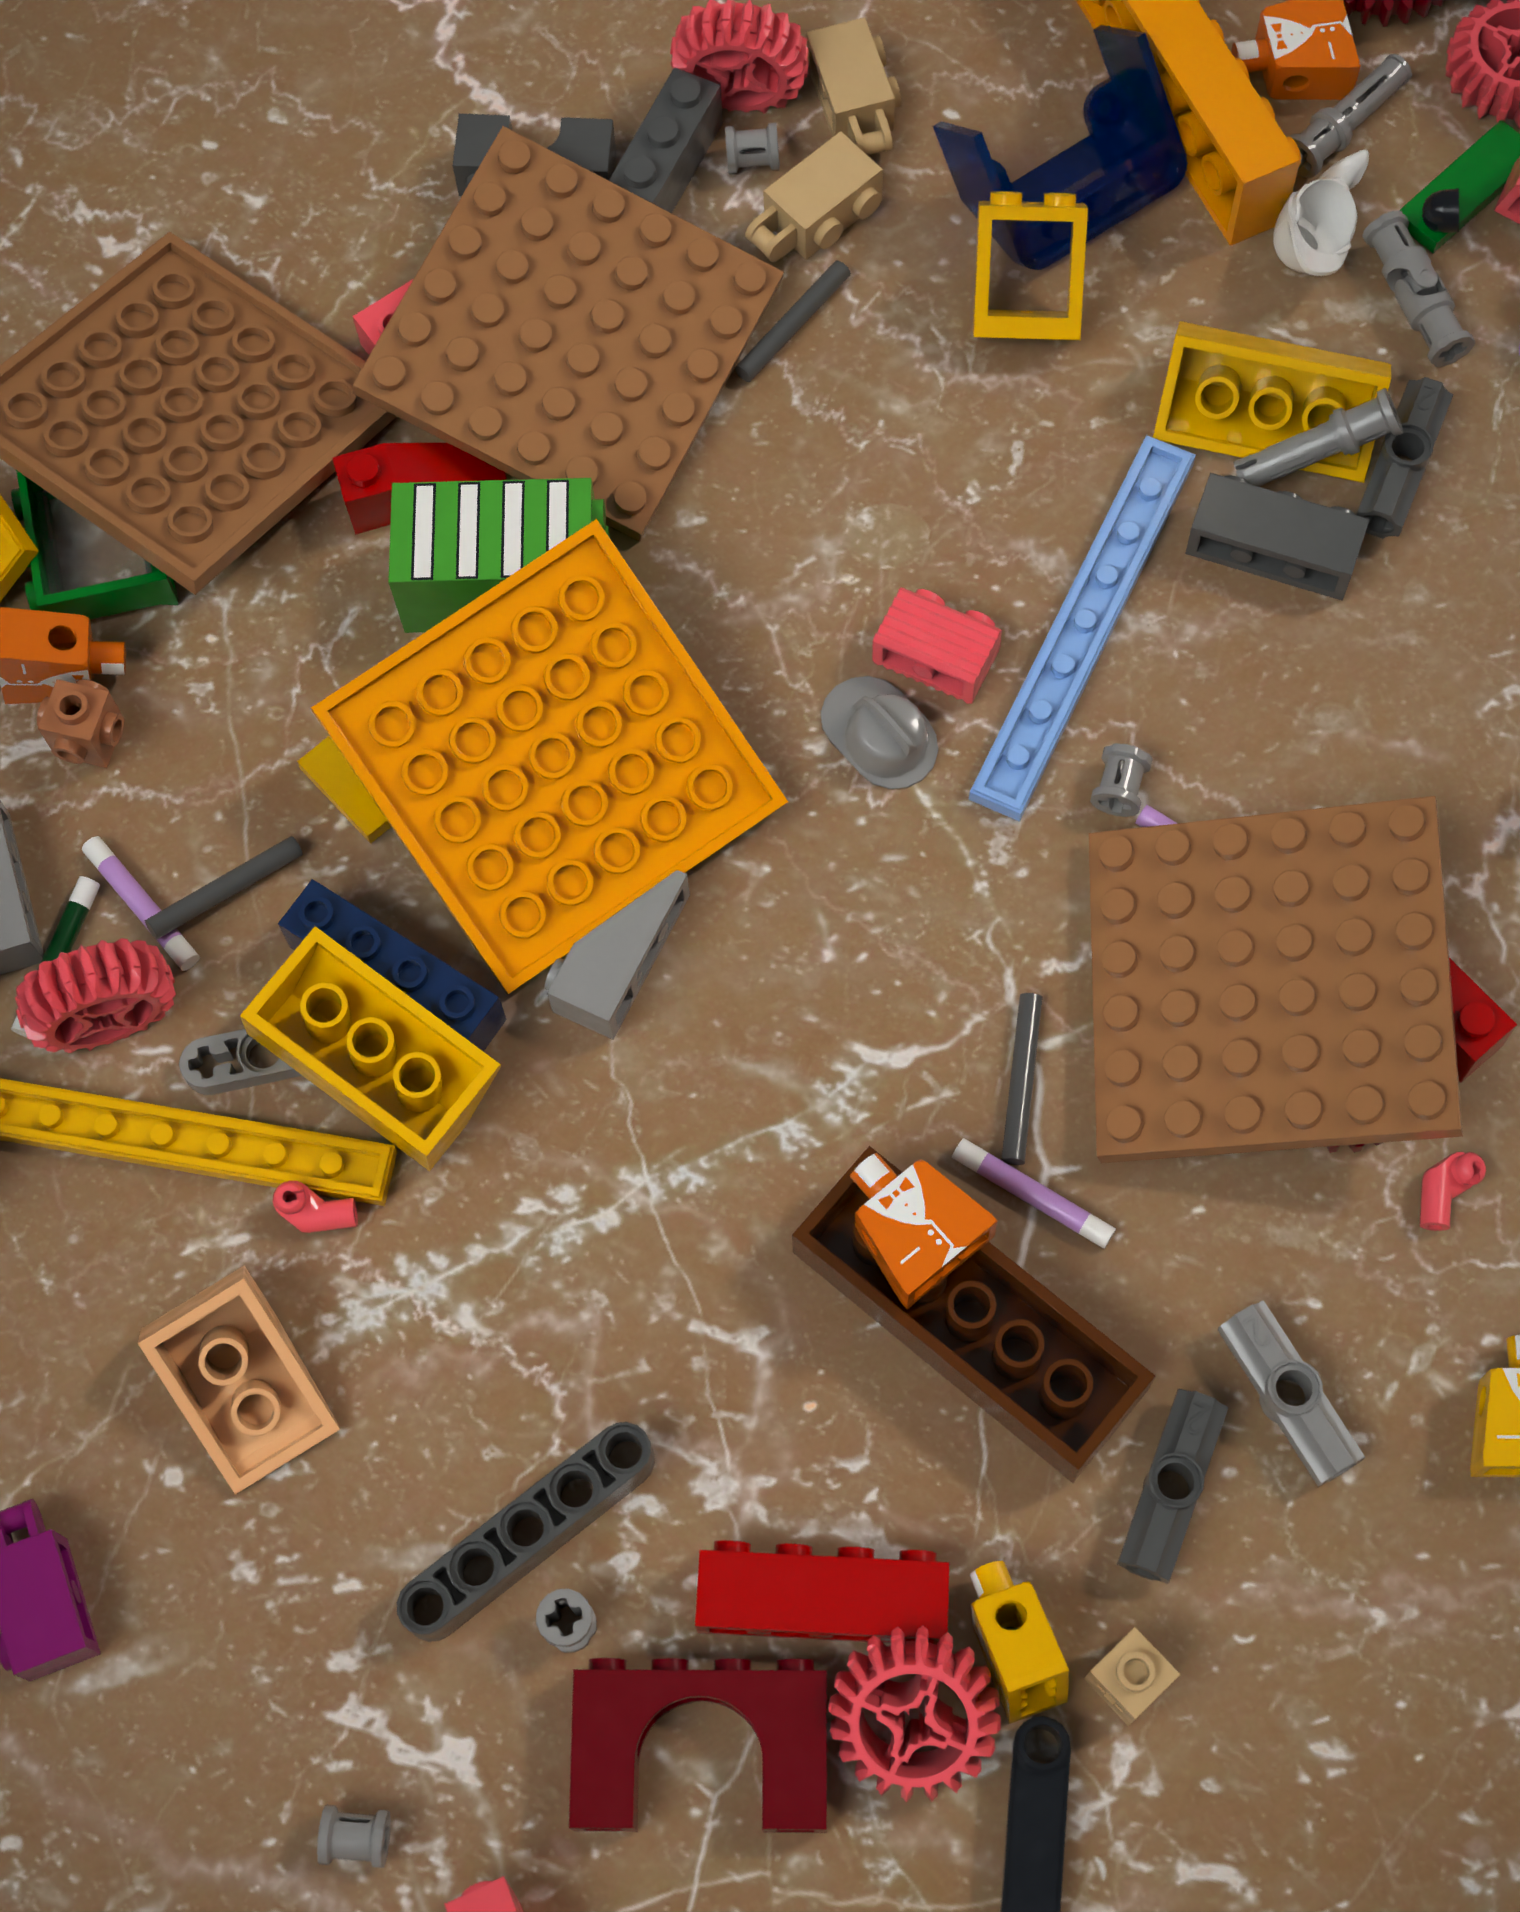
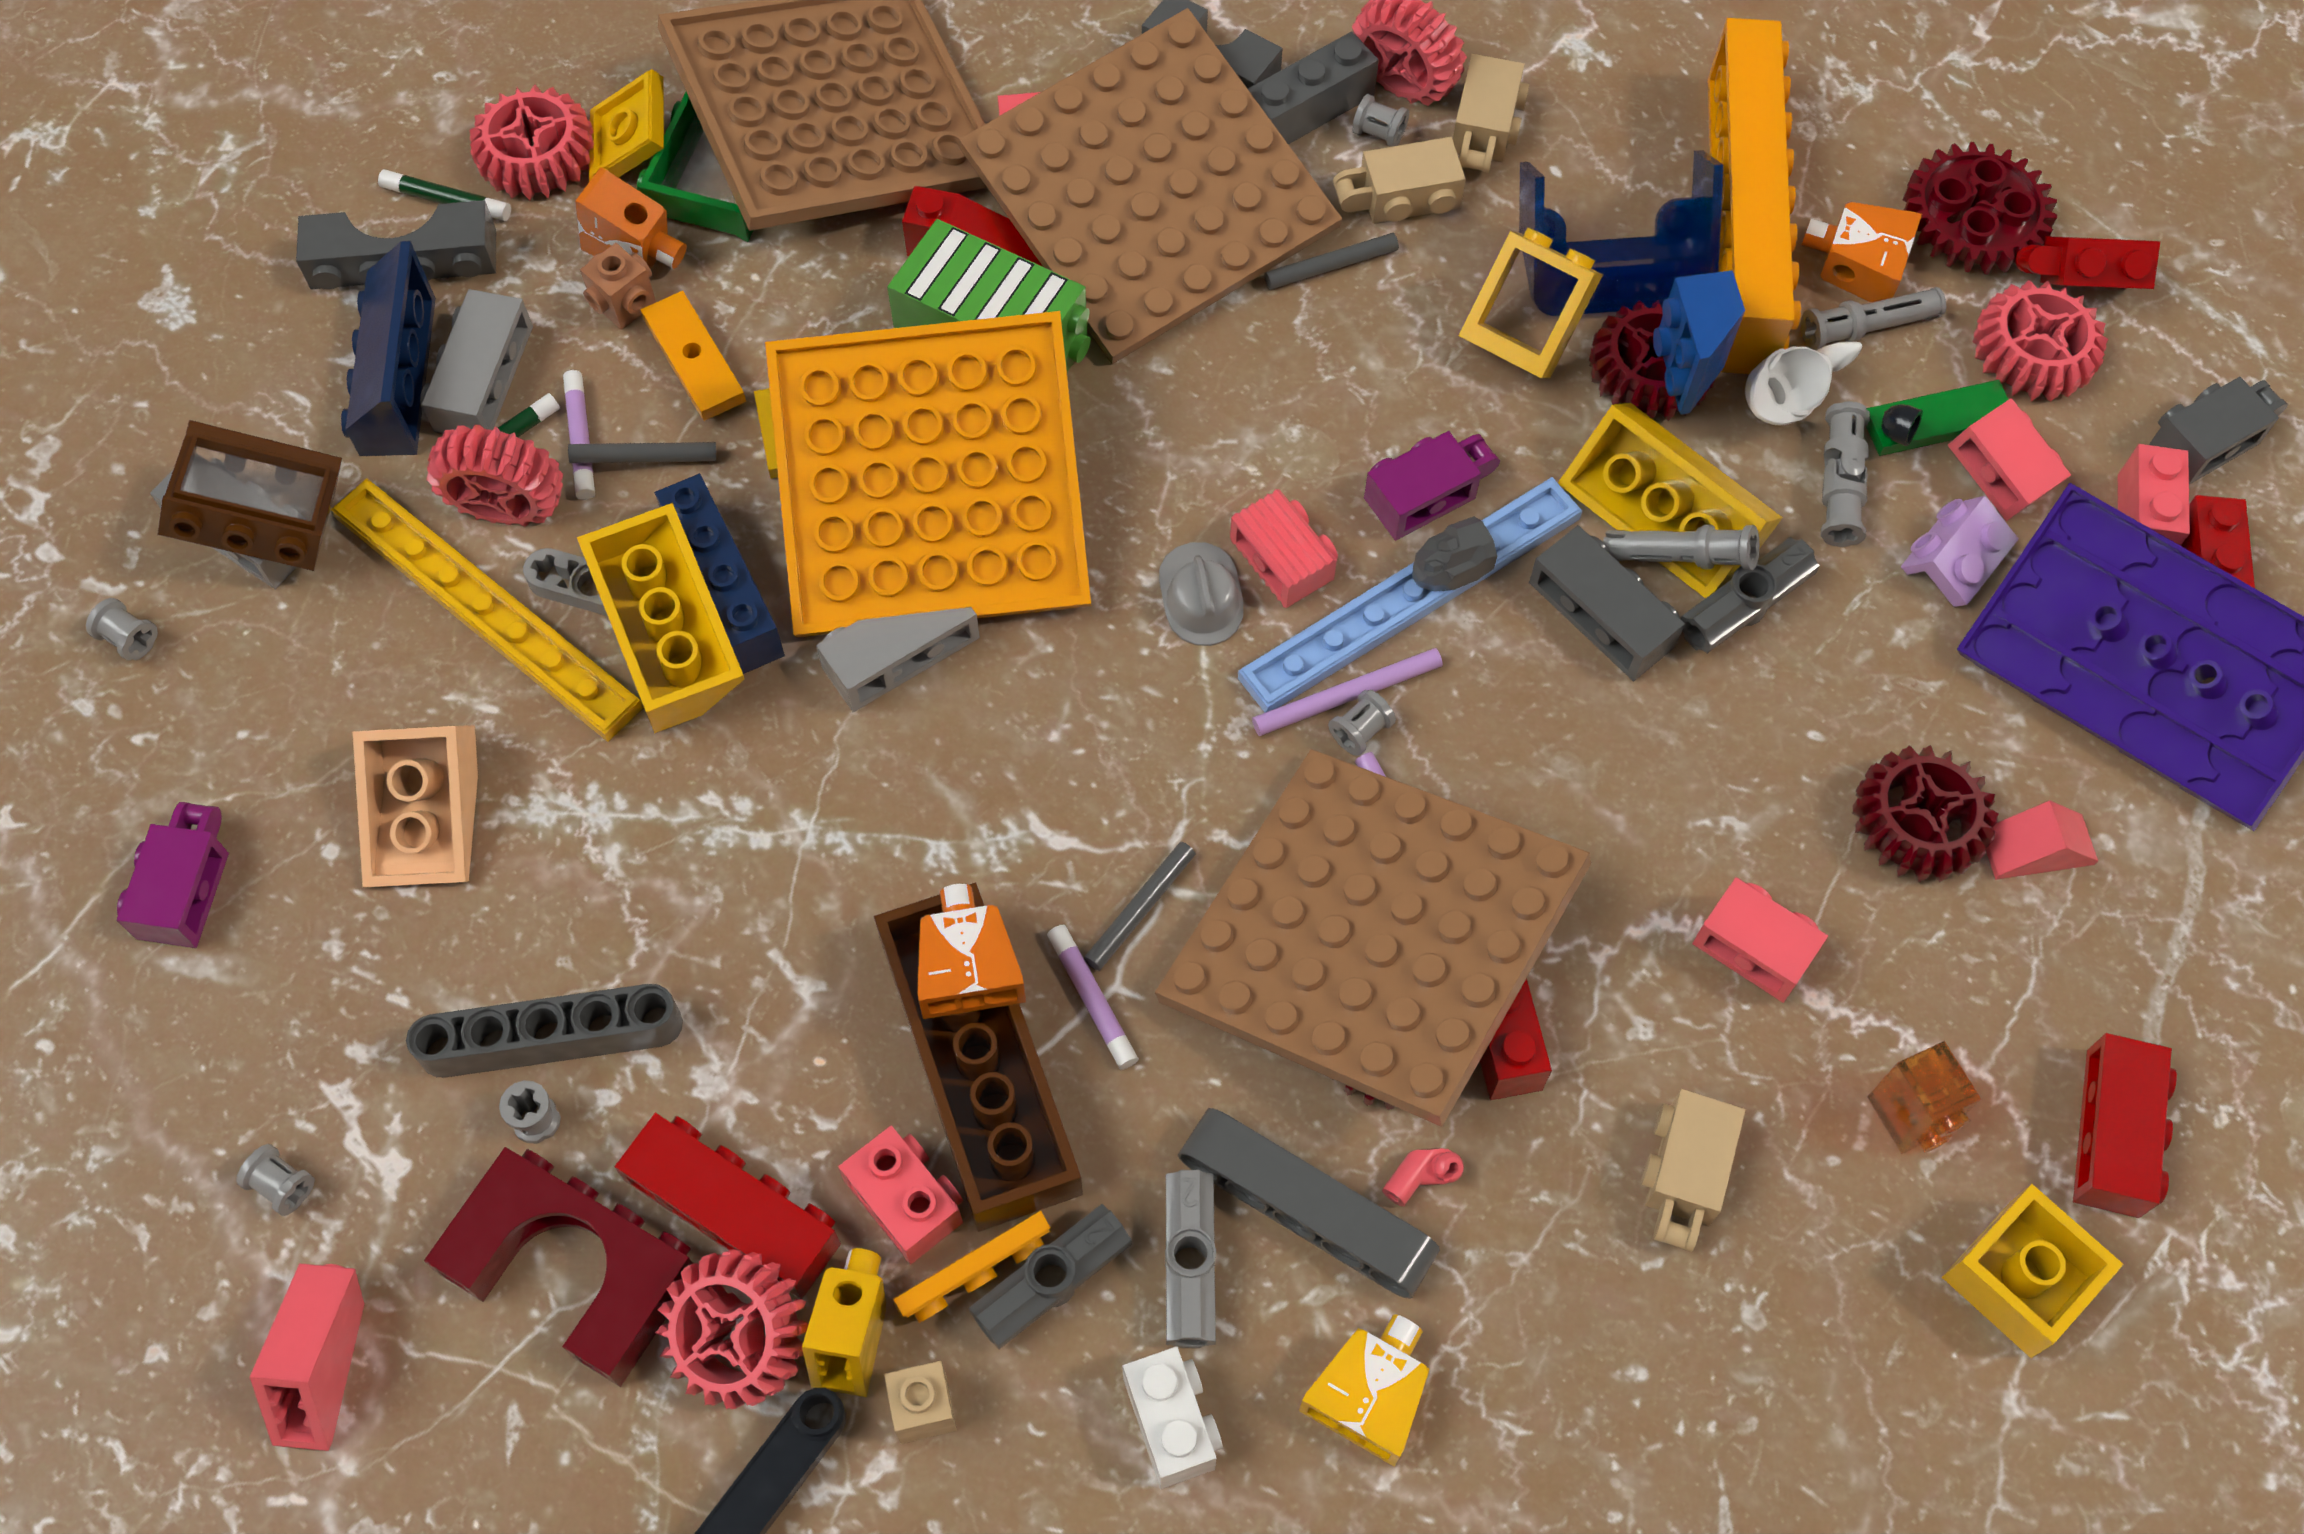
camera: 25 degrees right, 5 degrees down
(185, 741) = (693, 355): none -> light orange tile
(310, 1212) = (548, 714): coral arm -> none
(982, 1487) = (902, 1193): none -> coral brick
(1032, 503) = (1427, 481): none -> magenta brick
(1084, 757) = (1346, 692): none -> lavender bar
(1094, 1519) = (973, 1268): none -> light orange tile
(1111, 565) = (1455, 556): none -> dark grey rock
(1139, 260) = (1631, 337): none -> dark red gear
(1219, 220) = (1697, 333): none -> blue slope
(1364, 1276) = (1310, 1203): none -> dark grey beam
(1370, 1553) = (1169, 1418): none -> white brick

